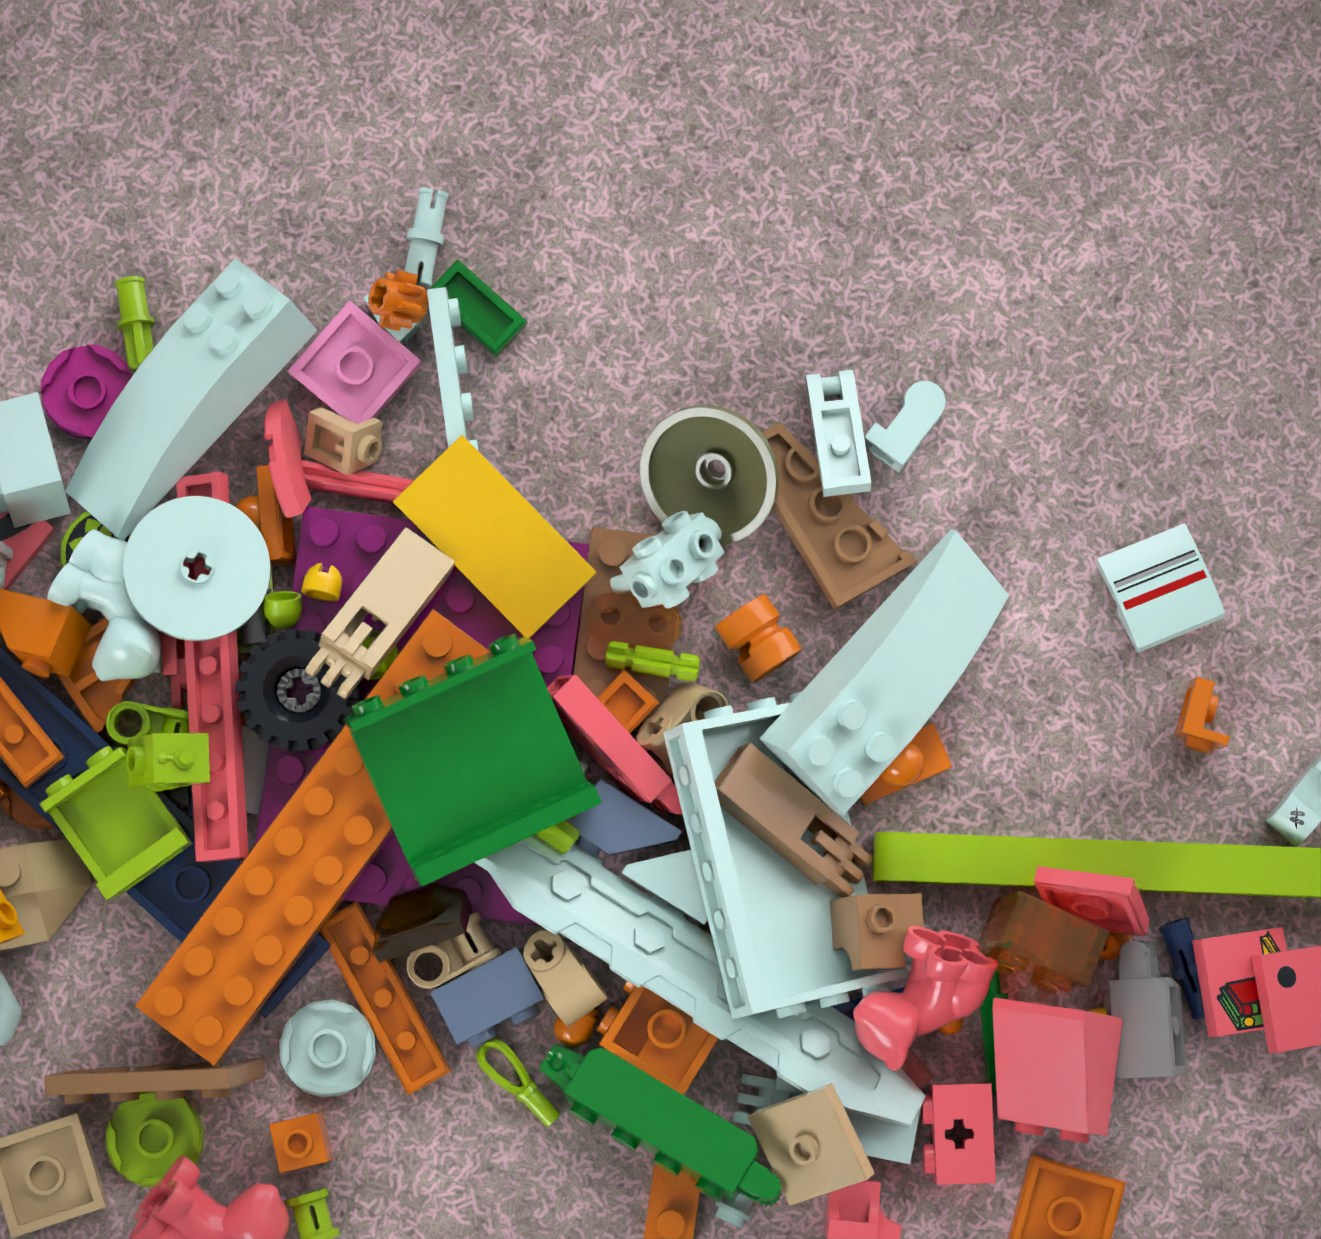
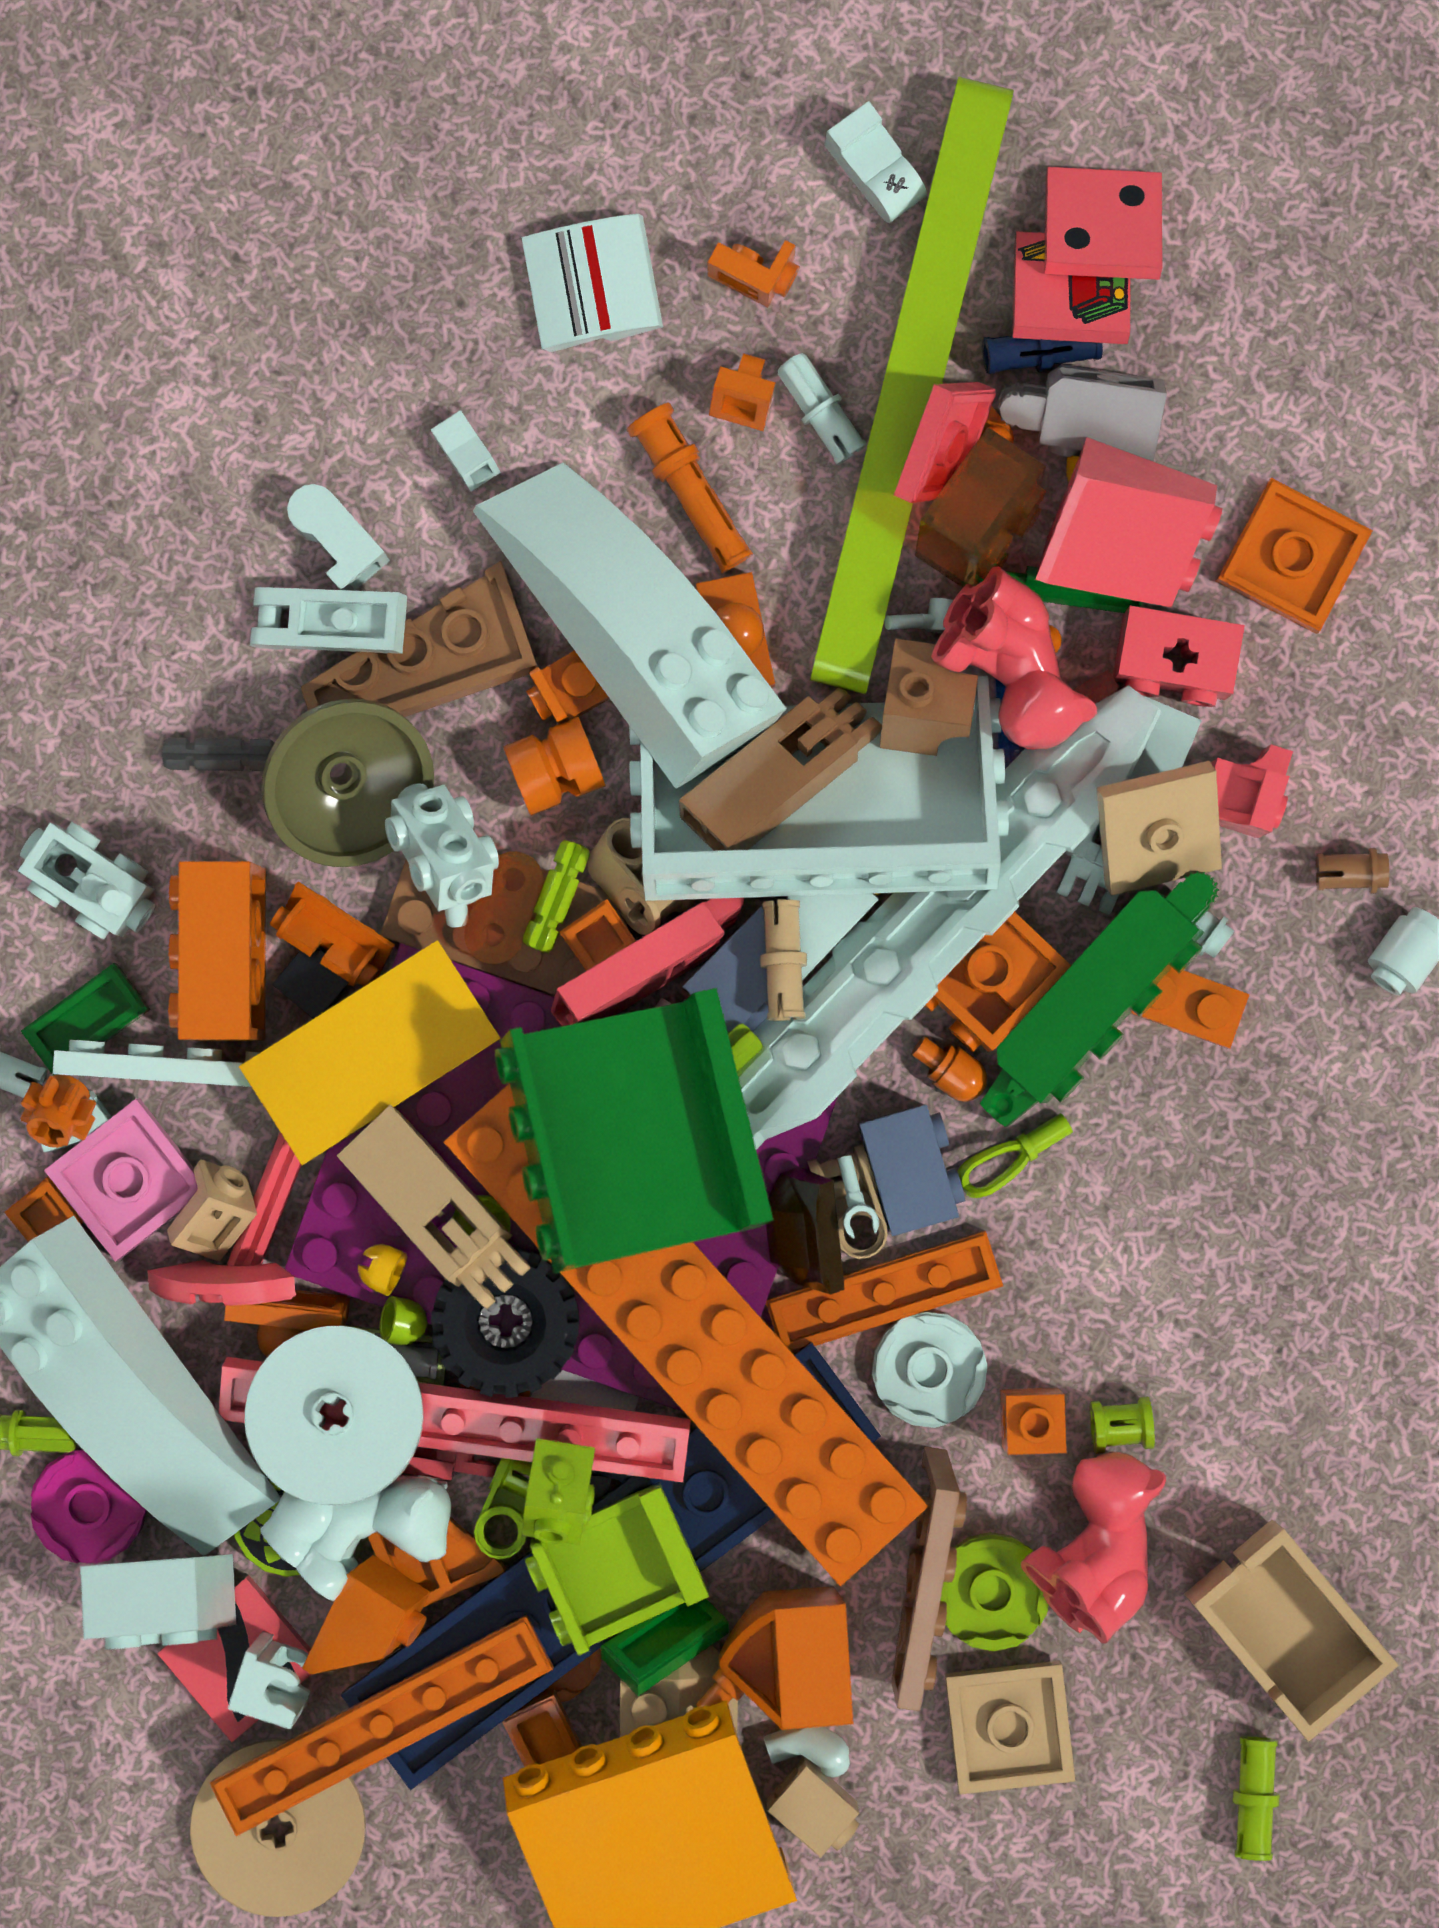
camera: 75 degrees left, 5 degrees up
(62, 874) = (663, 1644): none -> green tile
(67, 977) = (789, 1659): none -> orange piece
(317, 304) = (41, 1210): none -> orange tile
(456, 954) = (854, 1196): none -> light aqua hand
(545, 481) = (310, 983): none -> black tile
(551, 401) = (219, 951): none -> orange brick
(563, 976) = (910, 1075): tan piece -> none
(577, 508) = (352, 948): none -> orange hinge
(582, 300) = (103, 891): none -> light aqua brick
(637, 855) = (783, 960): none -> tan pin
(711, 365) = (215, 754): none -> dark grey axle
(822, 633) = (565, 689): none -> orange bracket
(942, 916) = (930, 622): none -> light aqua hand
(1000, 514) = (465, 451): none -> light aqua piece
(1027, 688) = (677, 464): none -> orange pin
(1096, 730) = (743, 394): none -> orange tile
(1099, 795) = (821, 408): none -> light aqua axle

